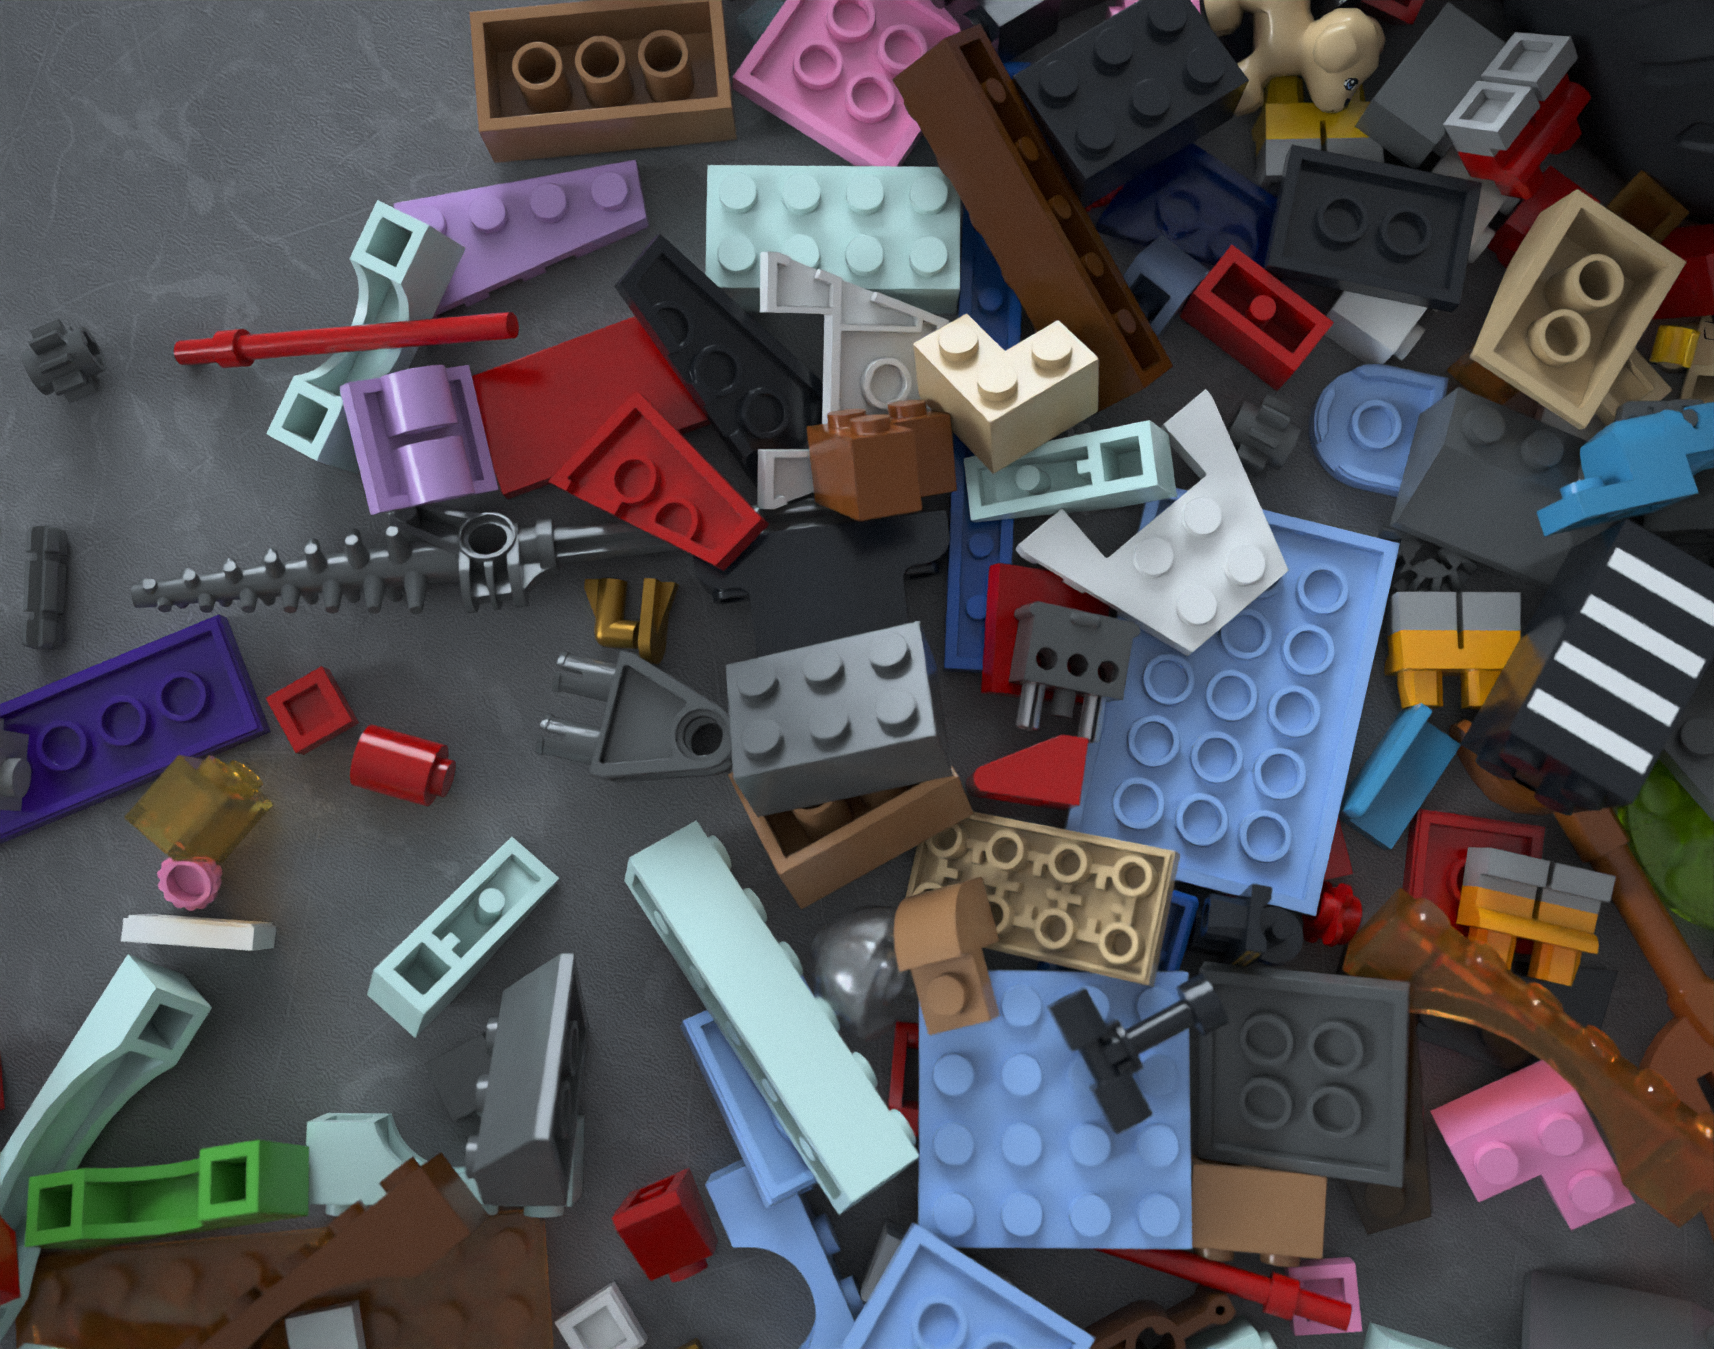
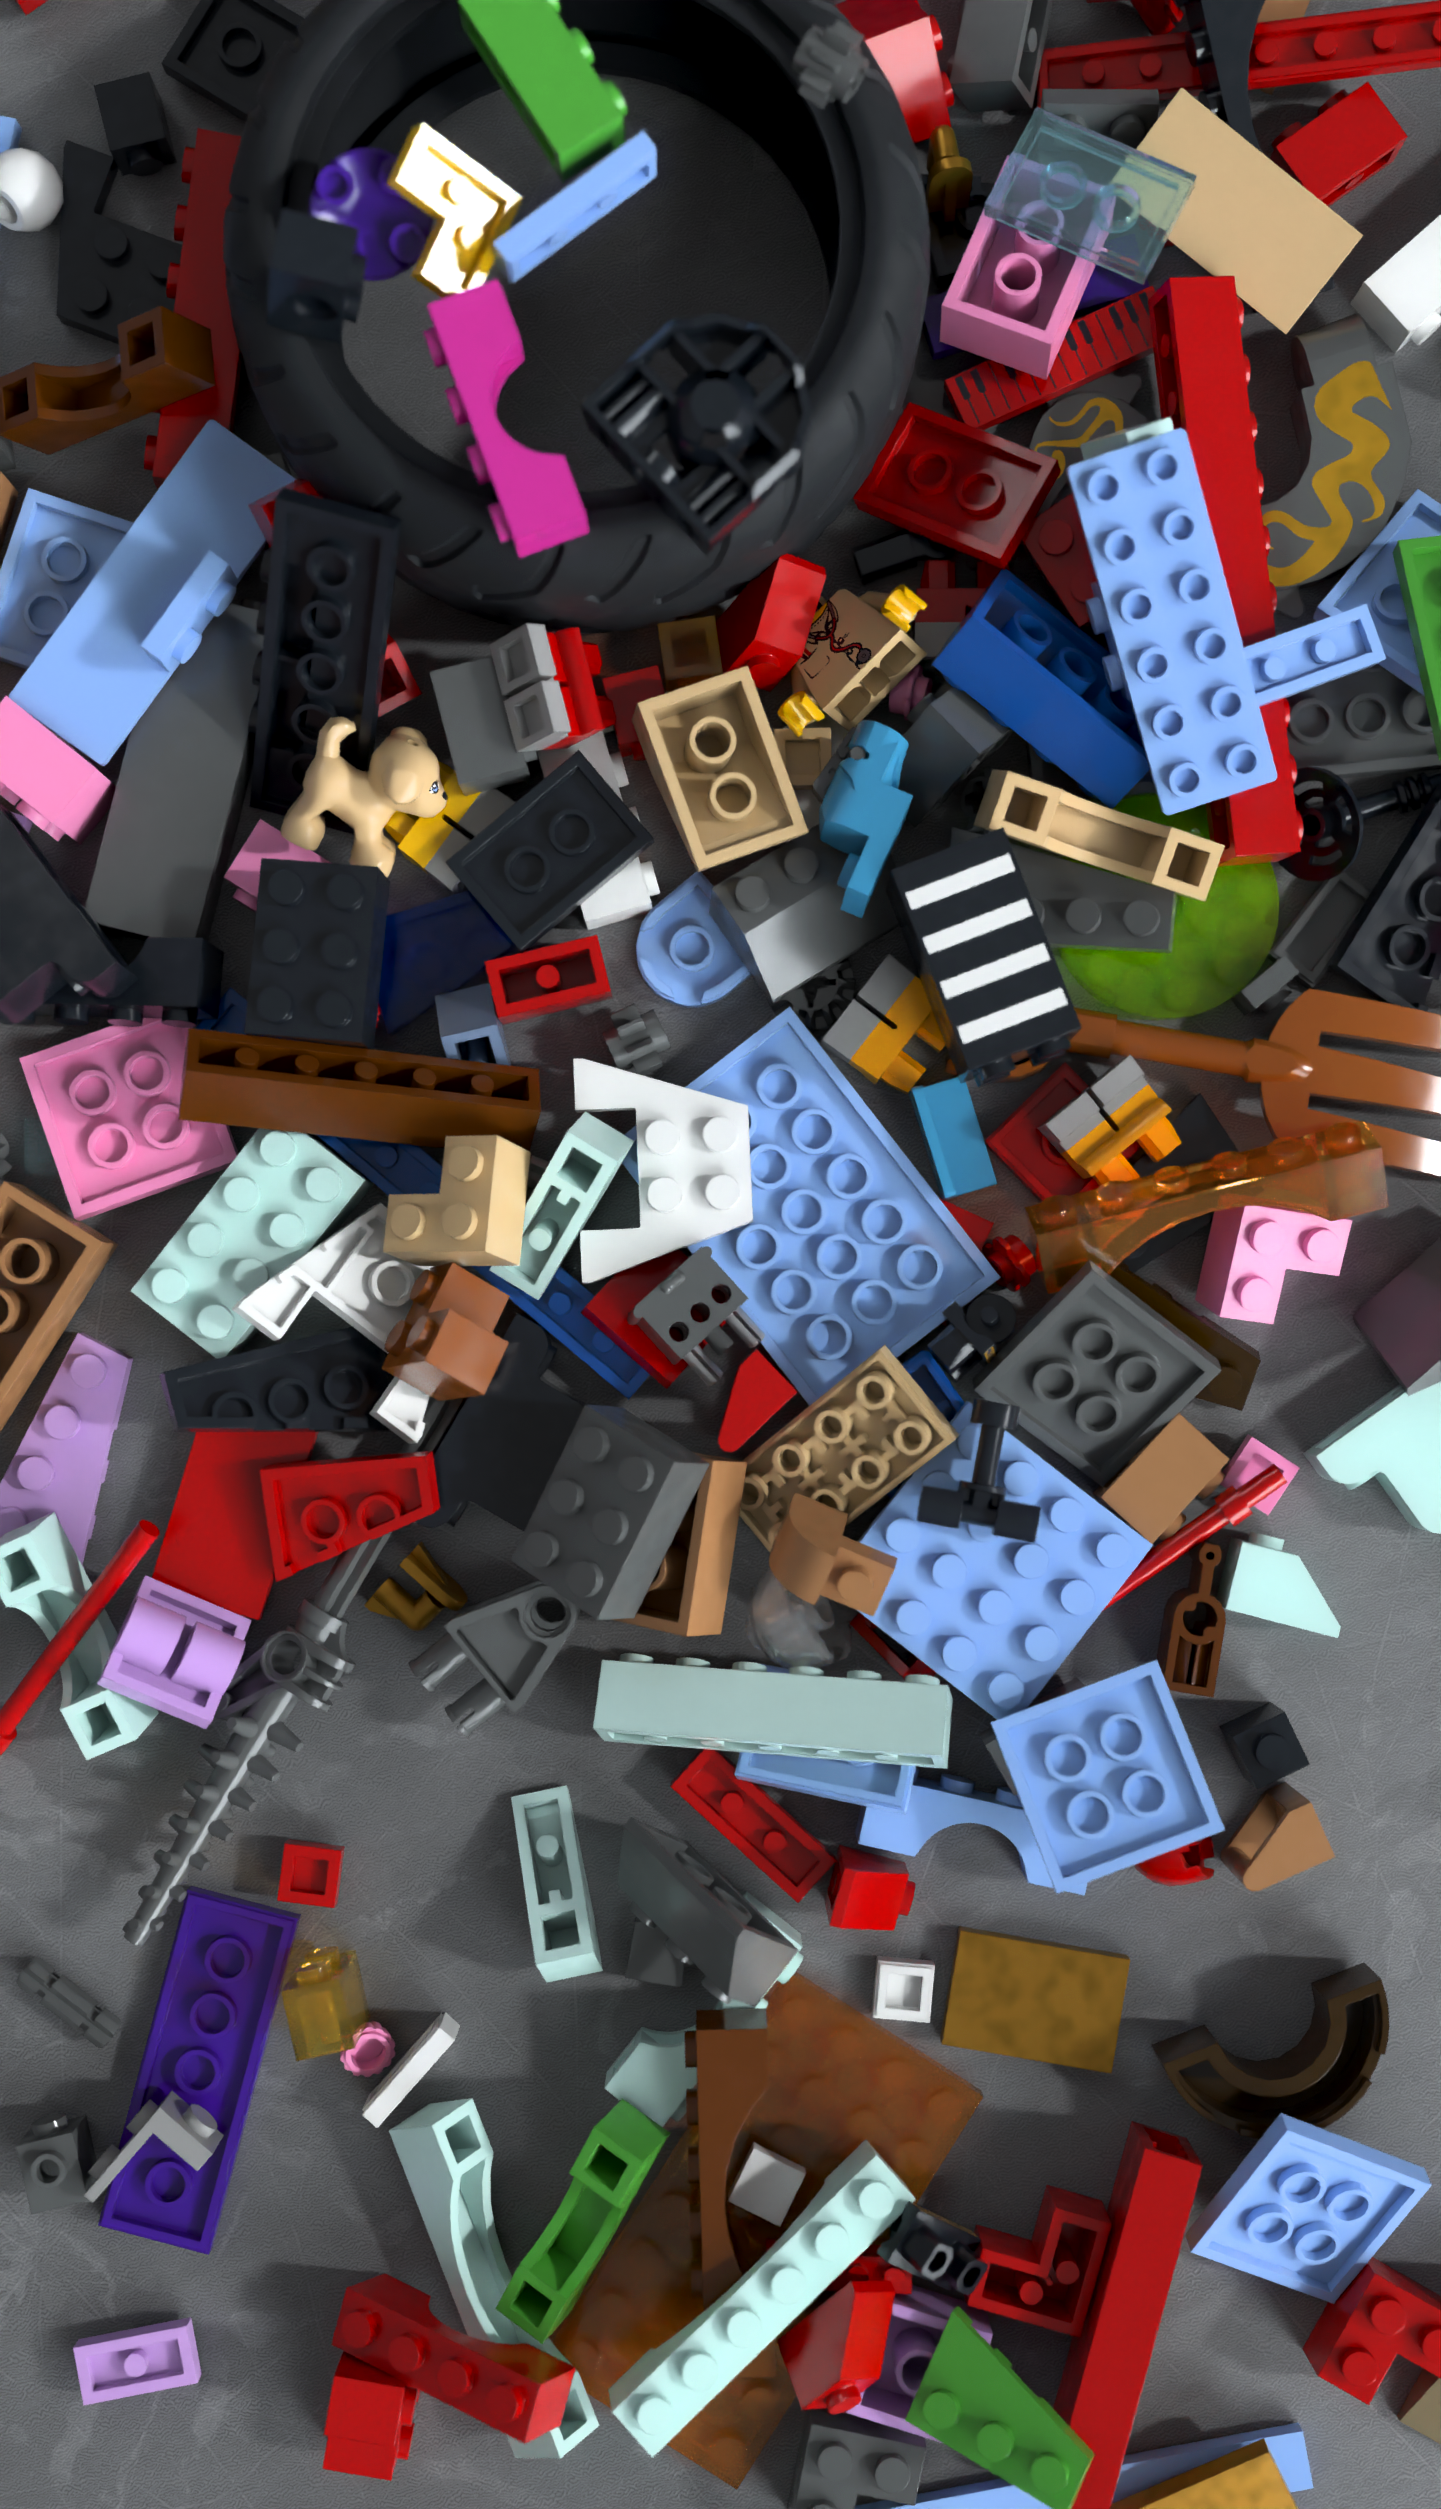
camera: 55 degrees left, 5 degrees up
(401, 766) = (401, 1838): red brick -> none
(651, 1074) = (753, 1823): none -> red plate

